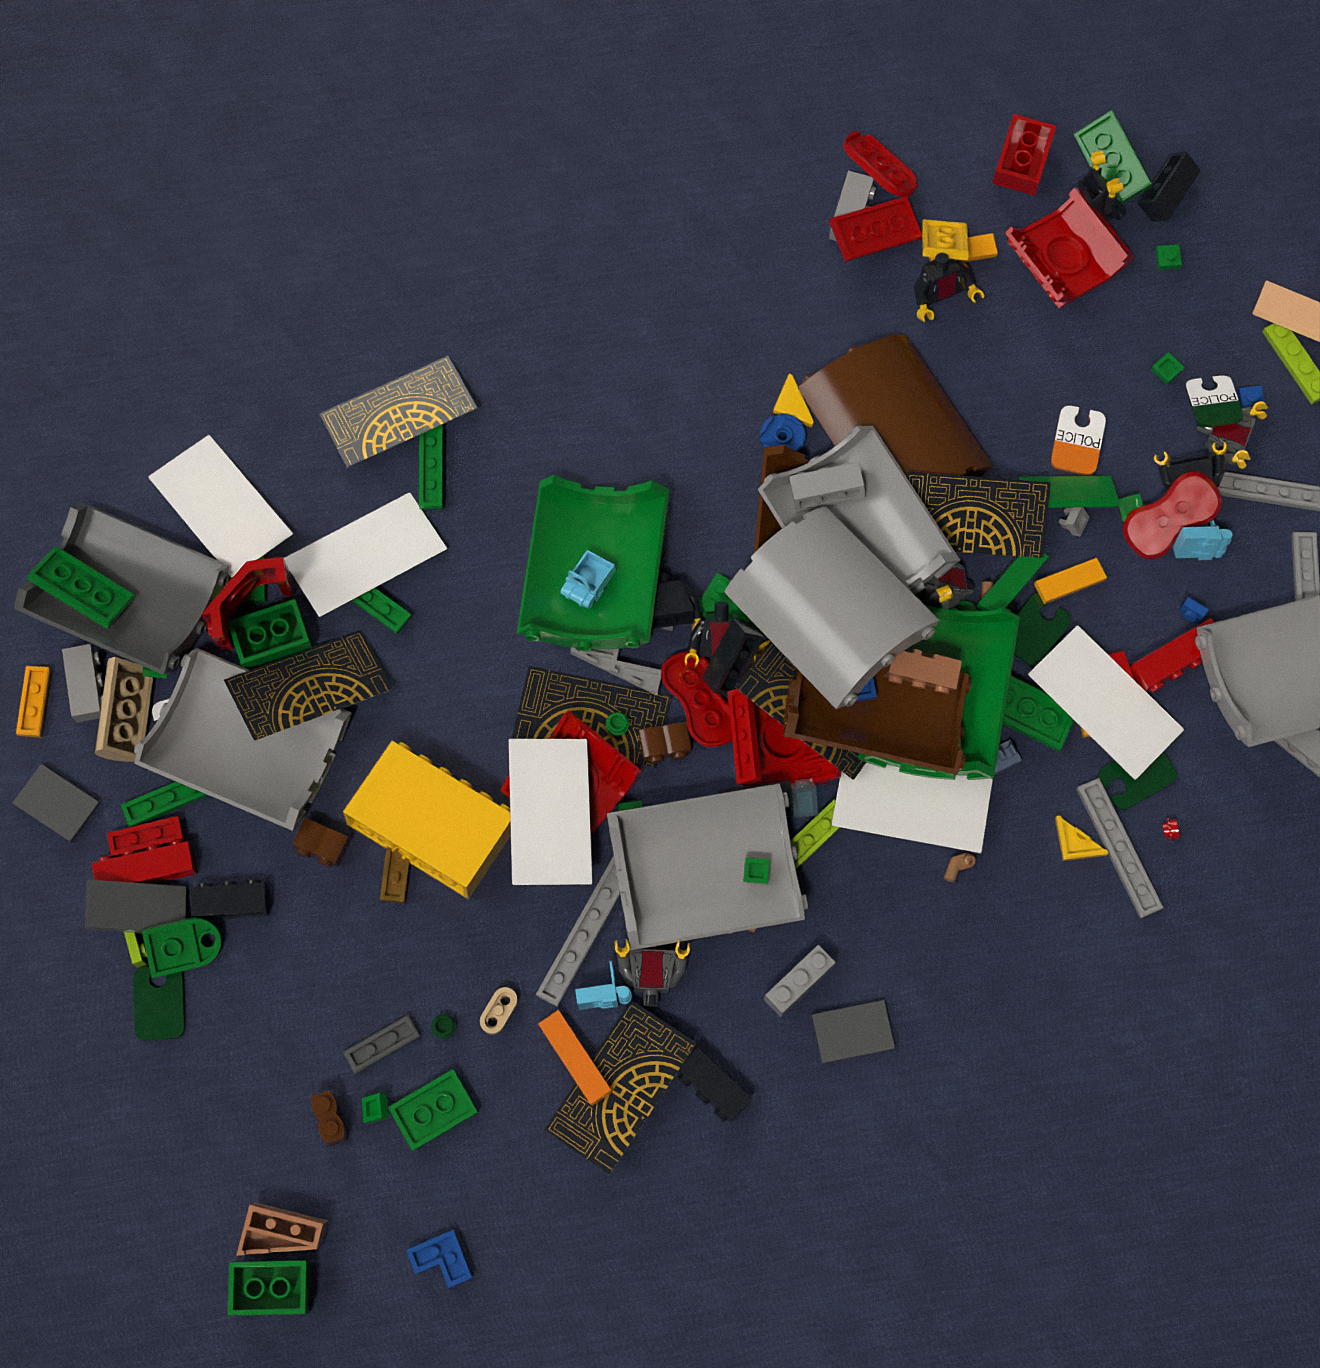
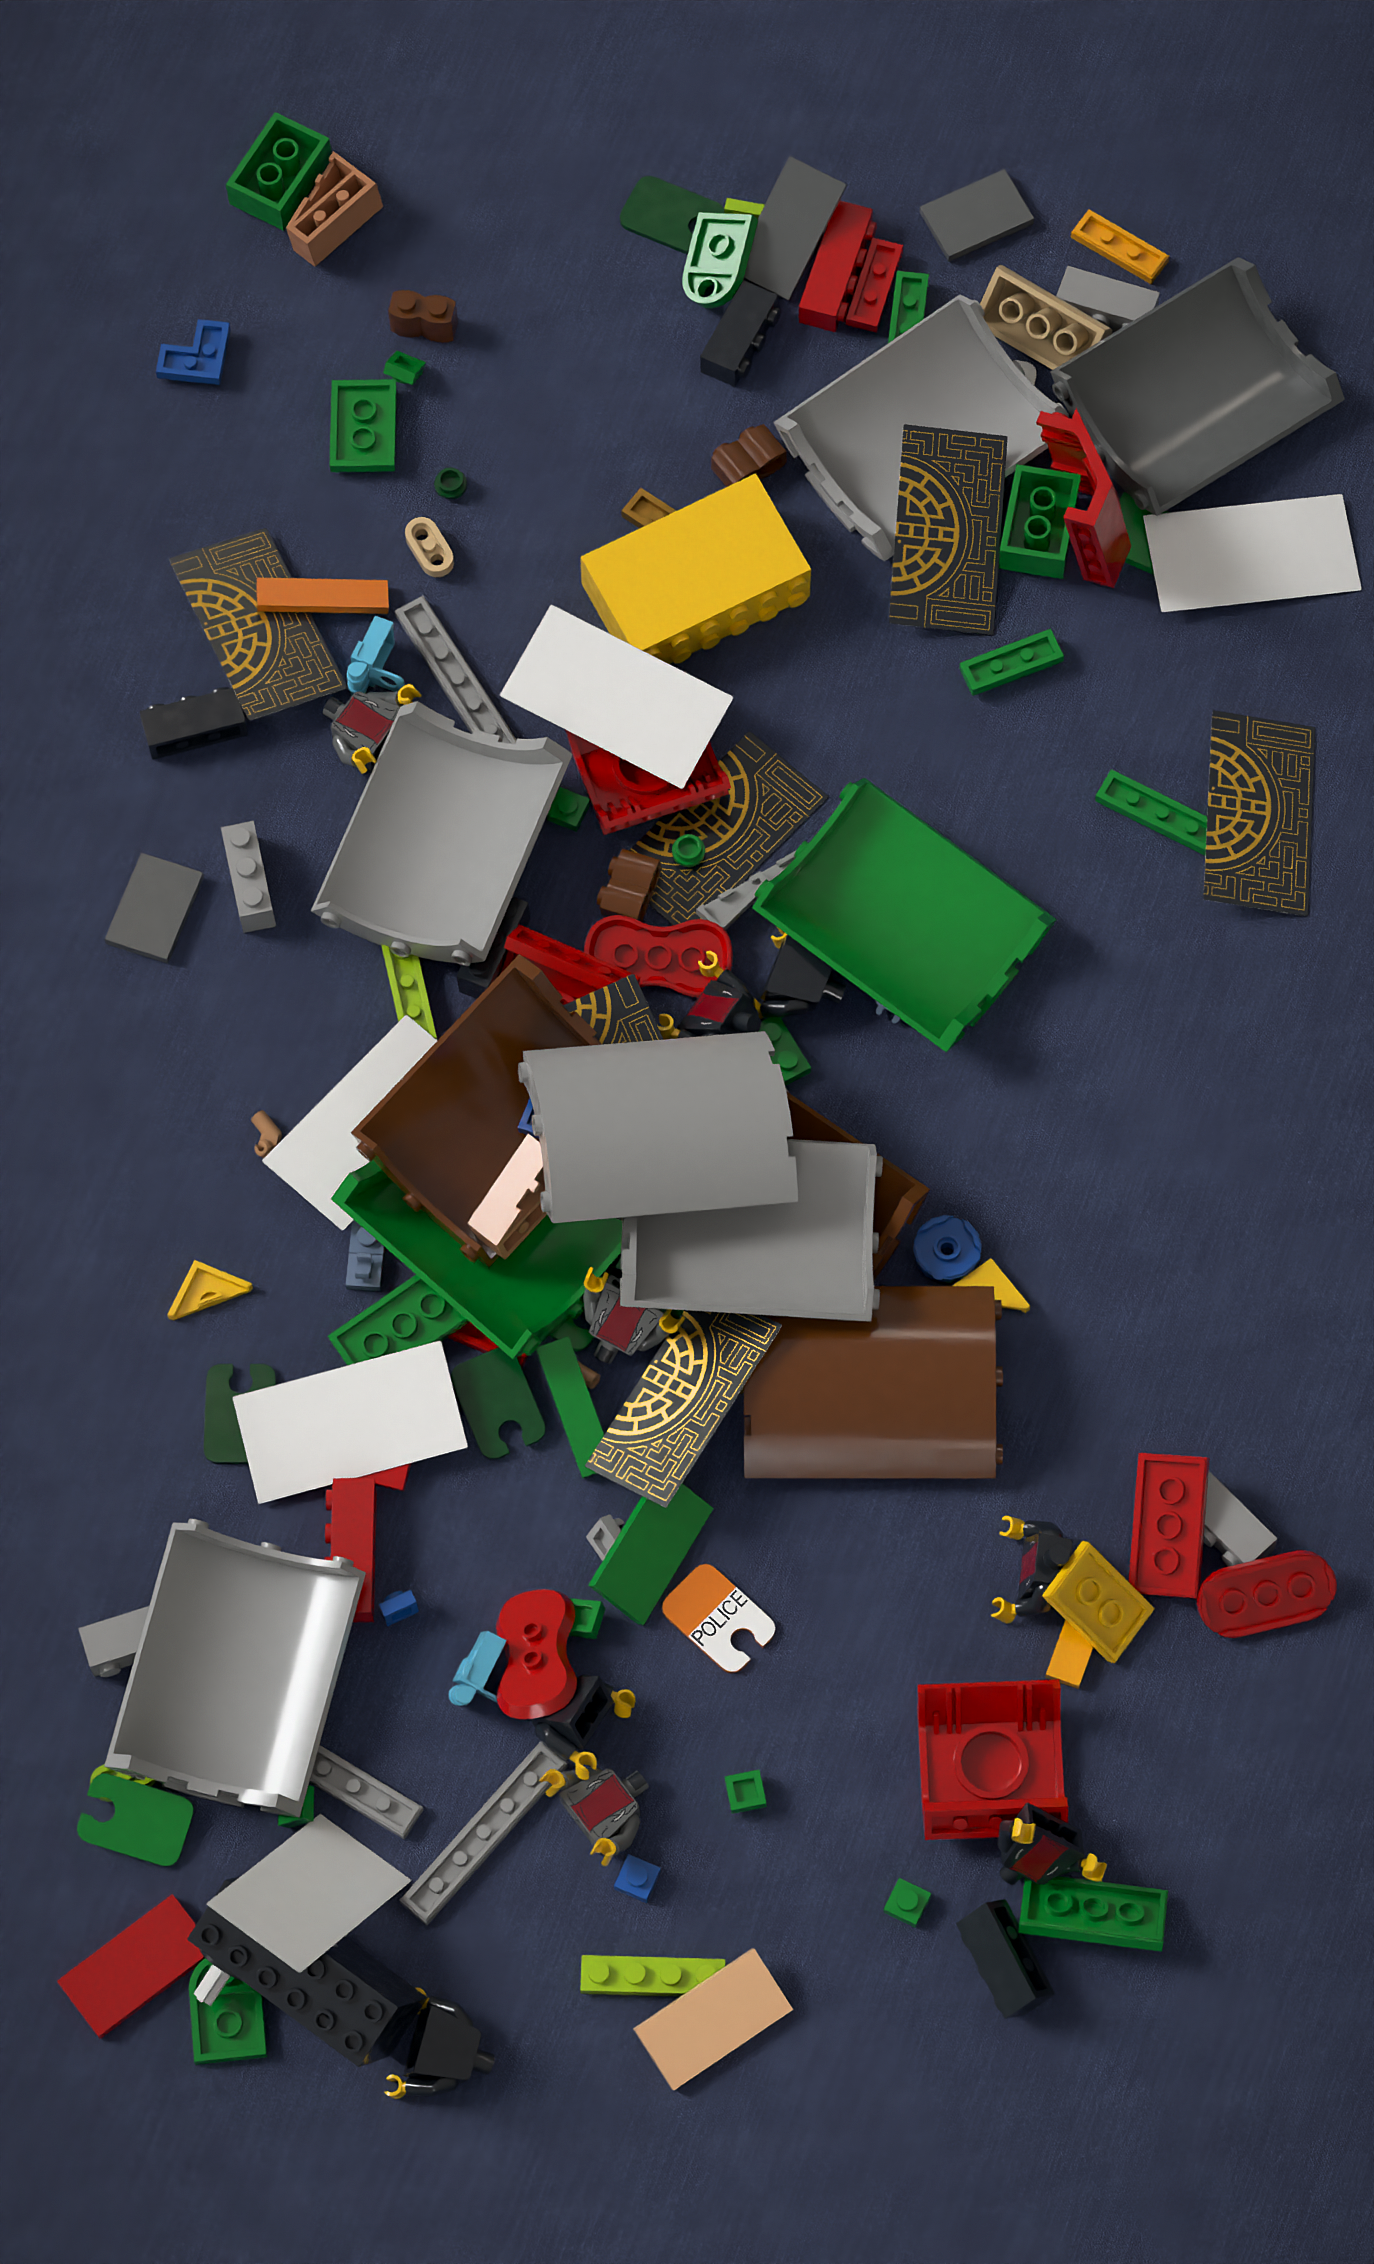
camera: 125 degrees right, 5 degrees down
(81, 587) = (1224, 342): green tile -> none
(364, 554) = (1085, 680): white sticker -> none
(381, 1044) = (473, 413): dark grey tile -> none
(588, 579) = (886, 900): medium azure piece -> none
(732, 656) = (677, 1000): black brick -> none
(756, 870) = (403, 892): green plate -> none
(804, 798) = (452, 997): clear light blue brick -> none
(827, 486) = (825, 1223): light grey brick -> none
(1024, 154) = (1168, 1791): red brick -> none
(1070, 580) = (533, 1483): light orange tile -> none
(1119, 848) = (166, 1335): light grey tile -> none
(1171, 829) = (146, 1406): red plate -> none
(1214, 406) = (651, 1805): piece -> none

